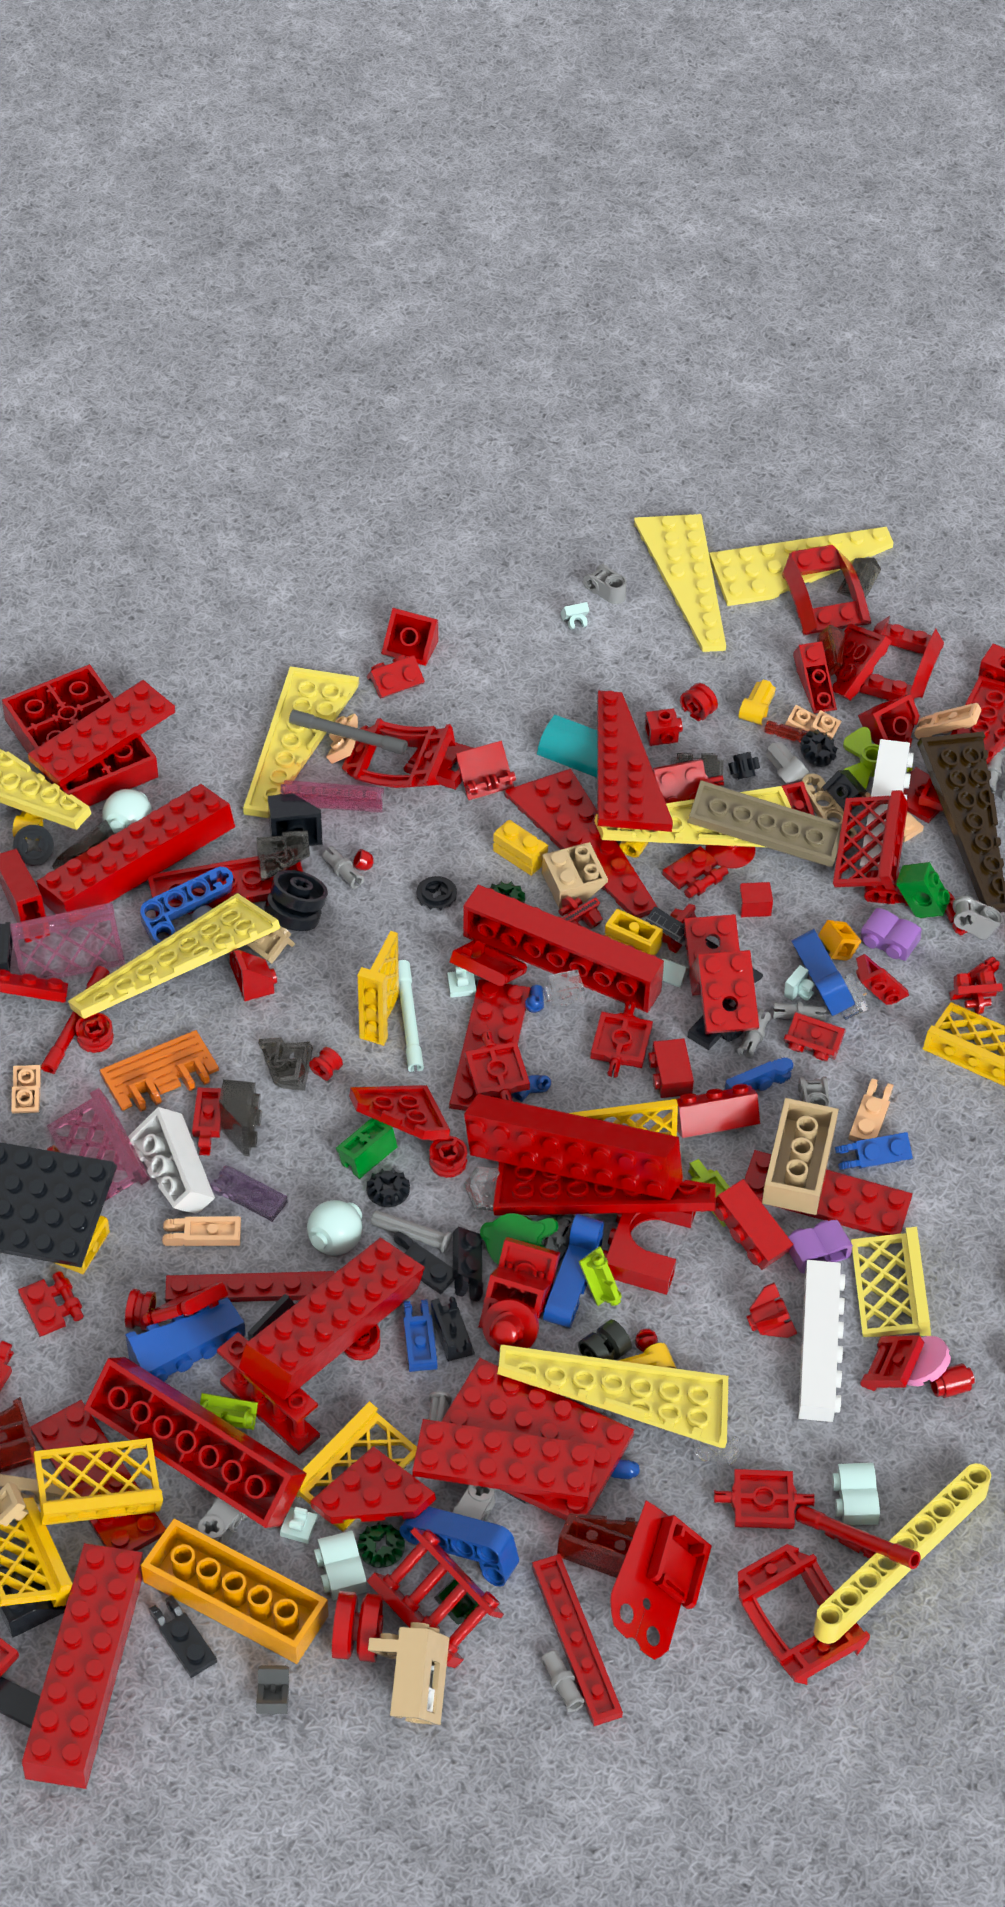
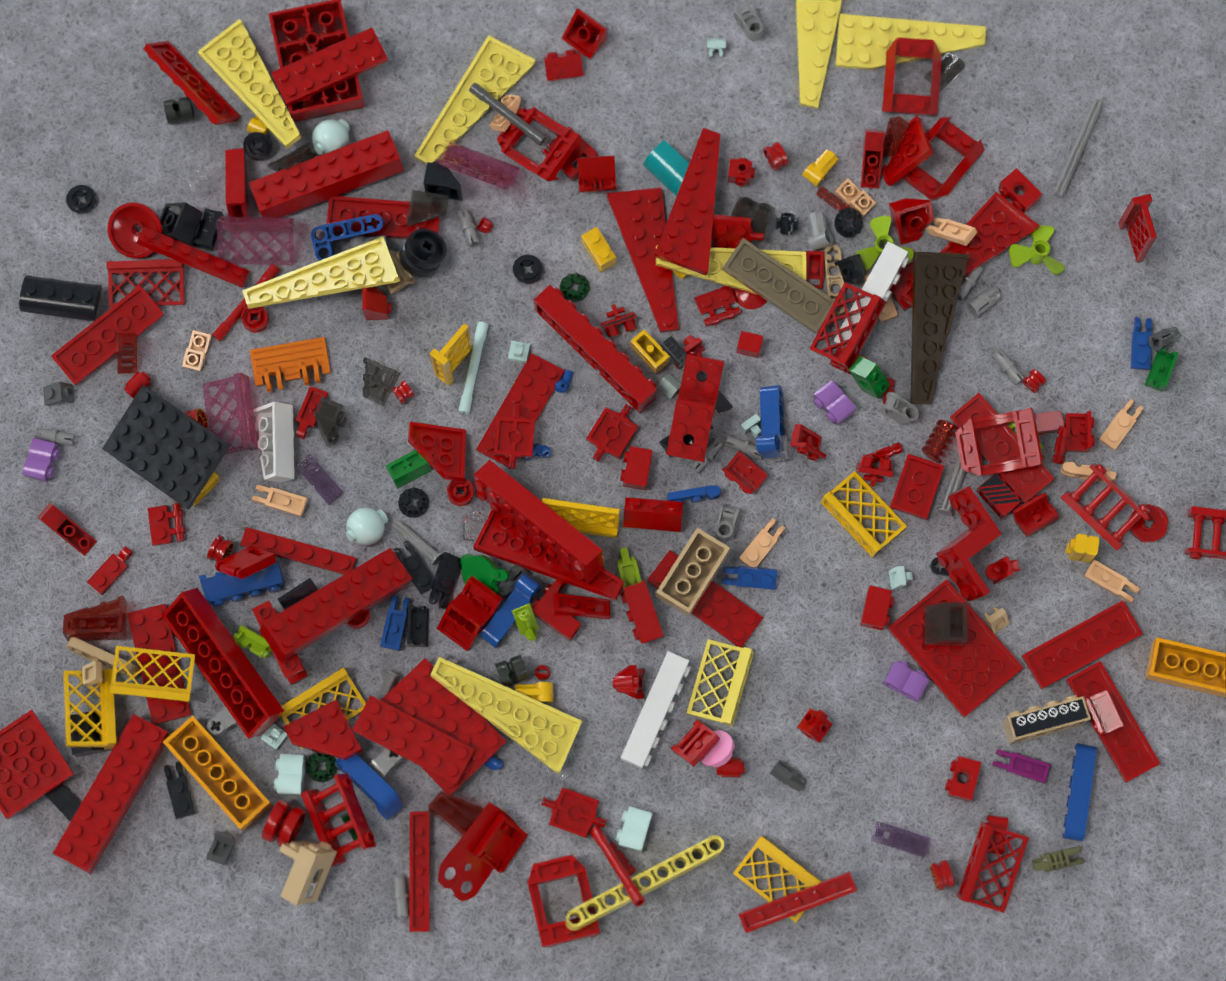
camera: 20 degrees right, 25 degrees up
(488, 962) = (542, 348): red container -> none
(510, 1324) = (454, 639): red plate -> none
(573, 873) = (628, 285): tan slope -> none
(667, 1240) = (581, 606): none -> red tile
(822, 1243) = (683, 639): medium lavender brick -> none
(839, 940) = (795, 397): light orange brick -> none

